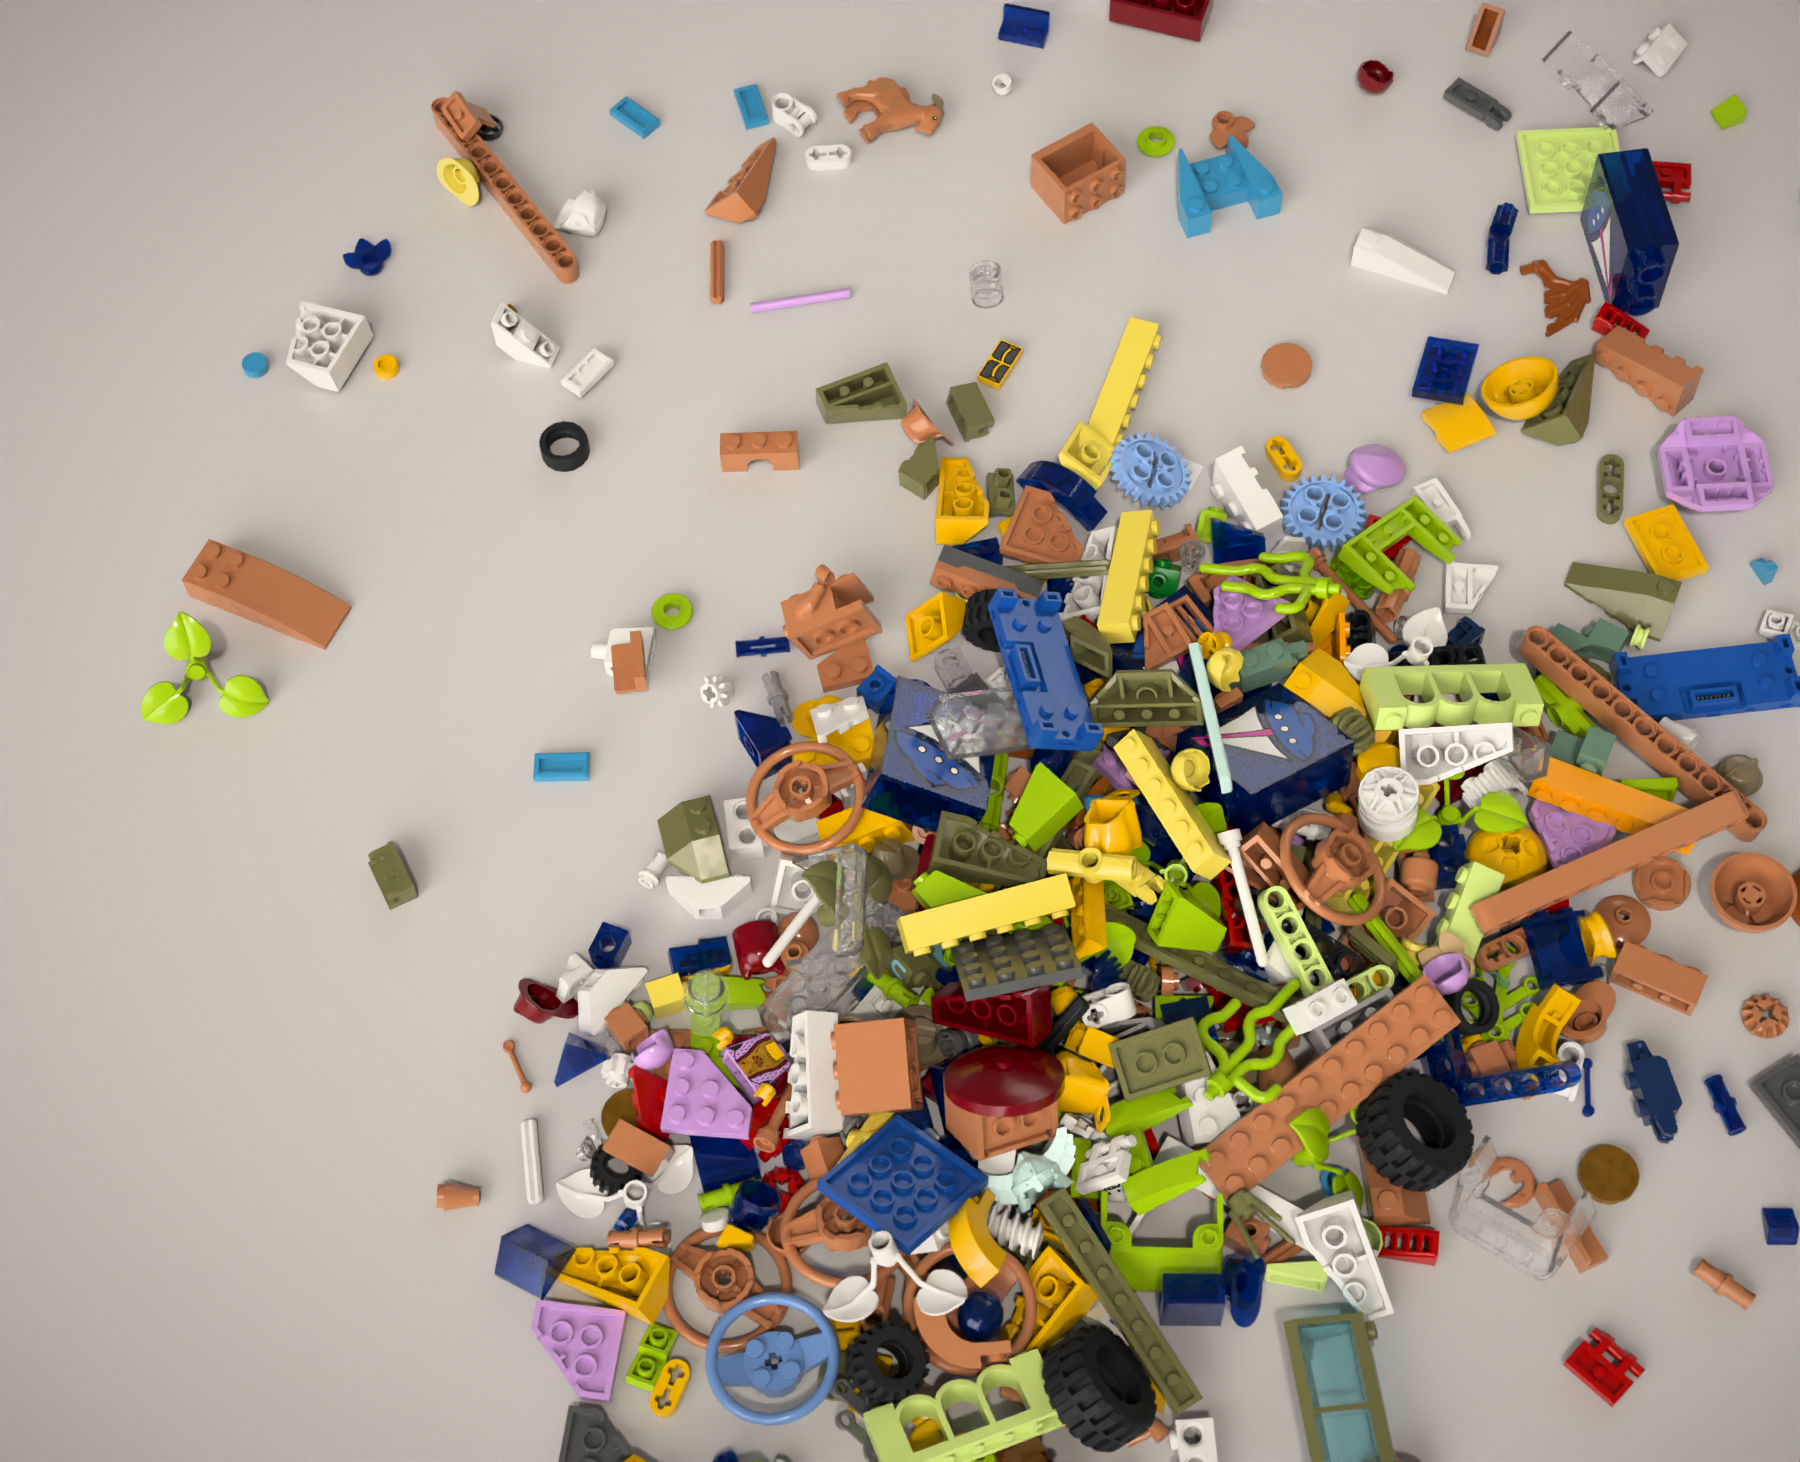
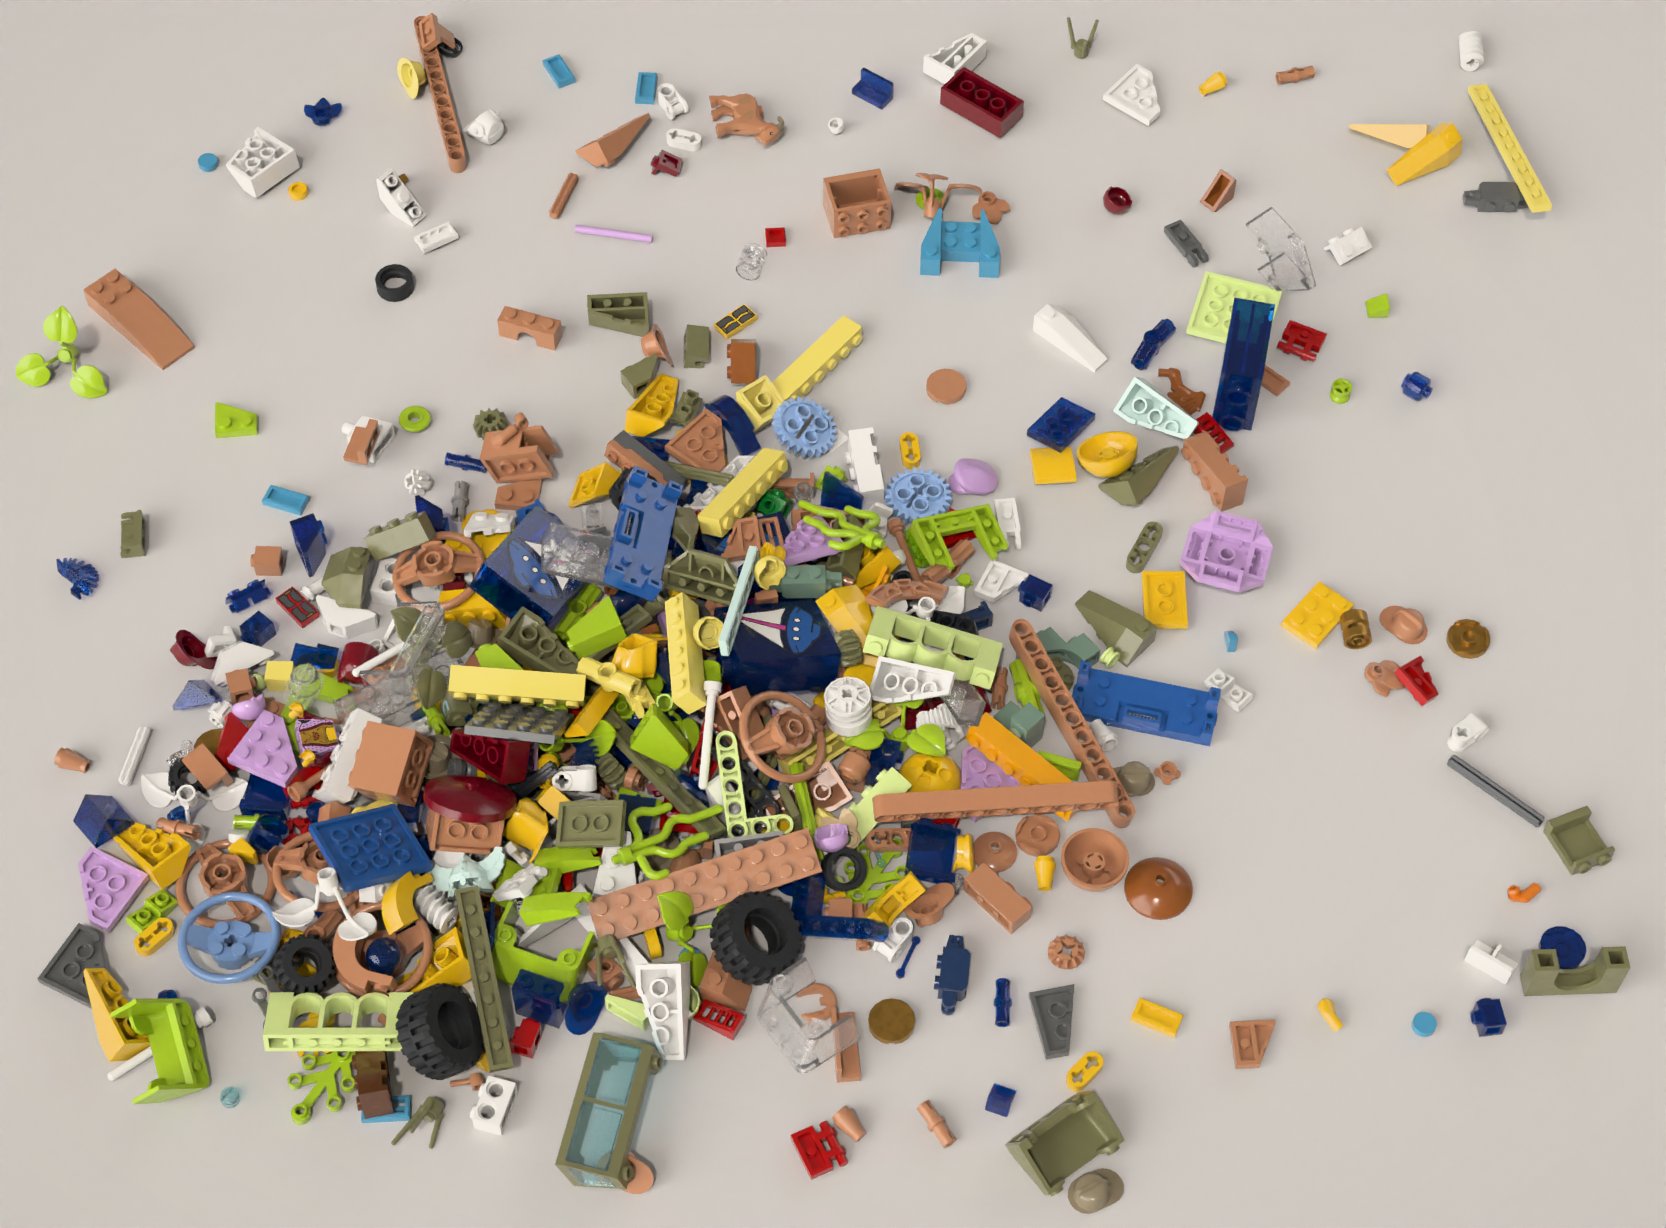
camera: 15 degrees right, 5 degrees down
(351, 951) = (80, 575): none -> clear blue hair
(448, 687) = (234, 421): none -> lime wing
(508, 1047) = (156, 675): nougat hinge -> none
(579, 853) = (268, 560): none -> nougat brick
(583, 898) = (239, 598): none -> clear blue hinge
(622, 812) = (309, 541): none -> clear blue slope
(642, 899) = (297, 607): none -> tile
(740, 768) = (399, 535): none -> brick
(770, 588) = (489, 422): none -> olive gear
(823, 192) = (666, 162): none -> dark red bracket
(996, 244) = (775, 237): none -> red tile
(1039, 409) = (742, 360): none -> dark orange brick
(1165, 149) = (932, 204): none -> nougat plant
(1193, 1352) = (526, 1038): none -> red brick
(1286, 1181) = (652, 944): none -> yellow beam
(1320, 1006) = (723, 825): white brick -> none
(1378, 634) = (906, 589): none -> nougat tile
(1424, 599) = (964, 580): none -> lime piece
(1515, 586) = (1035, 592): none -> clear blue brick
(1545, 319) = (1153, 409): none -> light aqua wedge
(1622, 1320) = (848, 1122): none -> nougat cone
(1695, 926) = (1044, 871): none -> yellow cone
(1738, 227) = (1341, 391): none -> lime wheel
(1774, 749) = (1169, 767): none -> nougat plate

